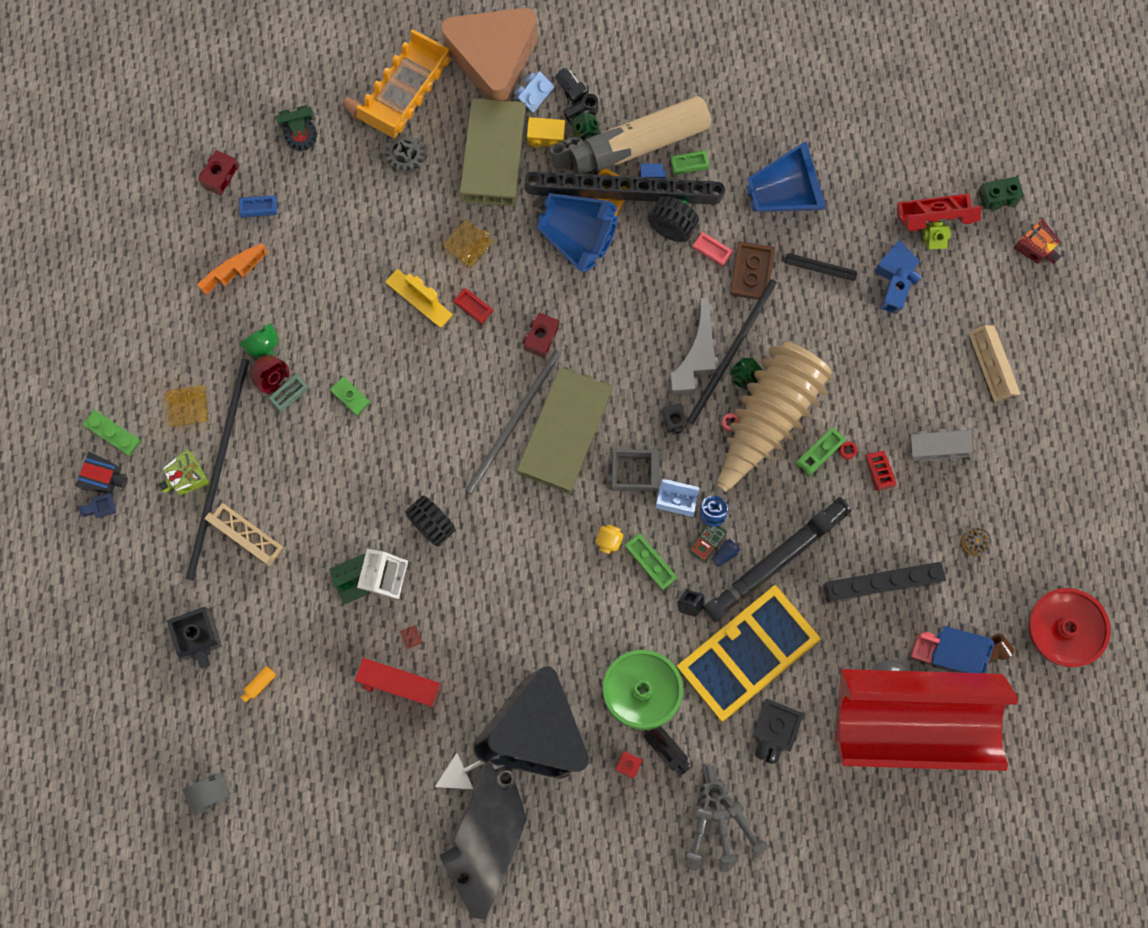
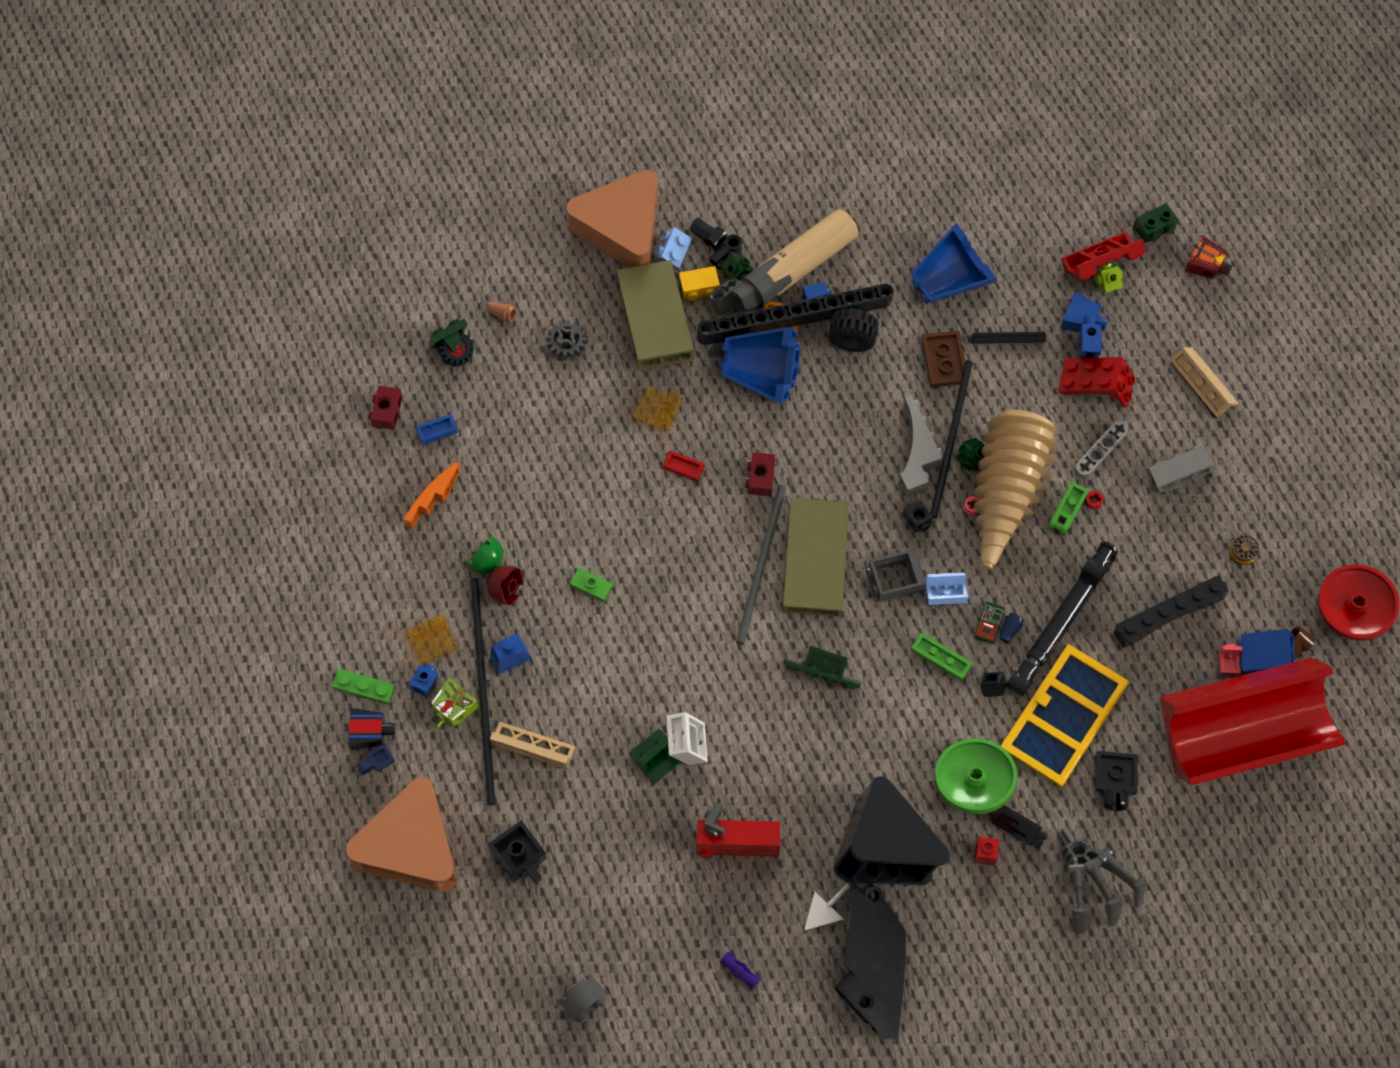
camera: 15 degrees left, 10 degrees down
(99, 593) = (407, 841): none -> nougat brick
(168, 449) = (424, 686): none -> blue brick
(251, 441) = (509, 653): none -> blue torso
(262, 679) = (596, 882): light orange cylinder -> none
(276, 403) = (520, 612): sand green tile -> none
(362, 808) = (740, 970): none -> dark purple pin
(375, 661) = (712, 816): none -> dark grey bracket
(404, 84) = (545, 274): light orange window -> none
(411, 637) = (731, 795): clear red piece -> none
(419, 296) = (628, 470): yellow bracket -> none
(430, 520) = (715, 676): black tyre -> none
(538, 538) = (824, 664): none -> dark green bracket
(609, 538) = (894, 646): yellow head -> none
(689, 162) = (848, 274): bright green plate -> none
(712, 249) = (898, 349): coral tile -> none
(714, 510) = (985, 590): blue wheel -> none
(871, 401) = (1099, 448): none -> light grey beam
(875, 477) = (1132, 522): red slope -> none
(893, 331) = (1098, 376): none -> red bracket

